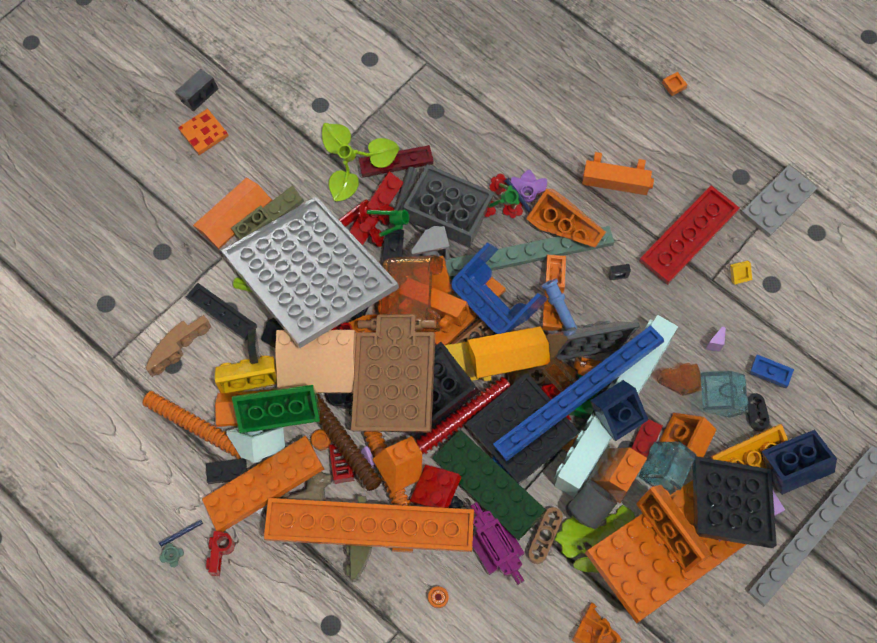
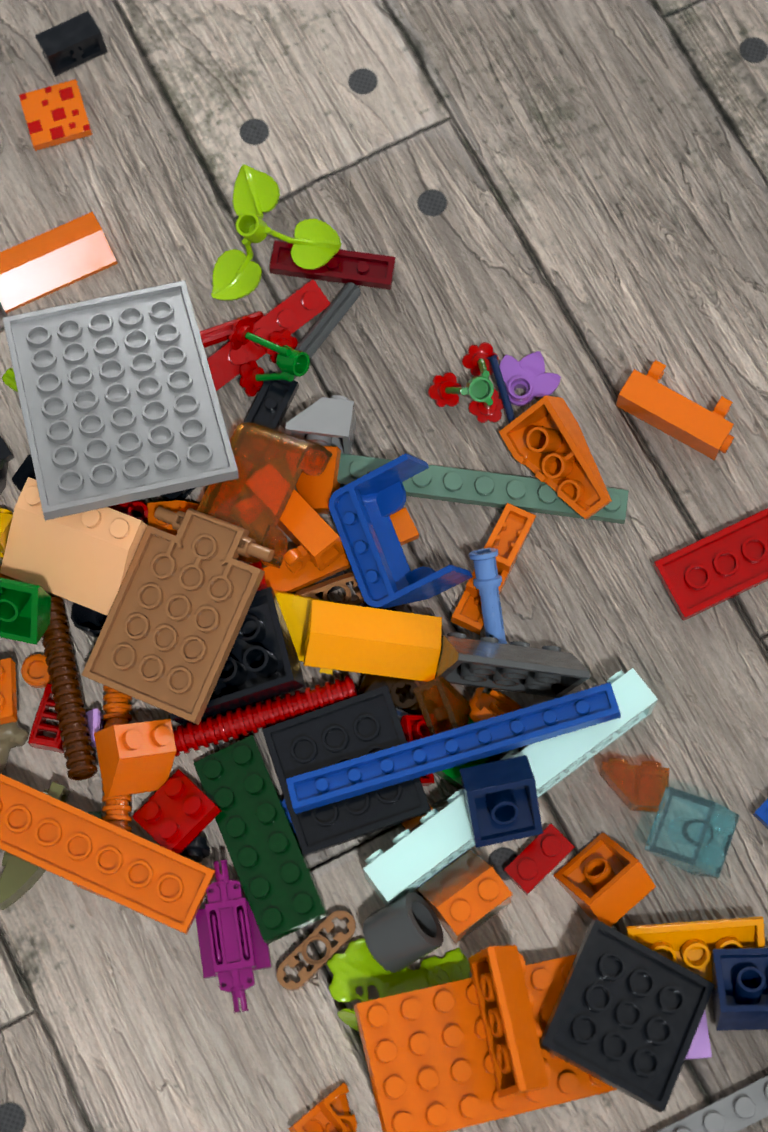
camera: 25 degrees right, 5 degrees up
(264, 215) = (90, 284): olive slope -> none
(438, 597) = (114, 982): orange tile -> none
(448, 202) = (382, 366): dark grey slope -> none
(619, 272) = (611, 572): black tile -> none
(667, 465) = (548, 915): clear light blue brick -> none
(717, 341) = (722, 742): lavender slope -> none
(761, 411) = (745, 884): black beam -> none

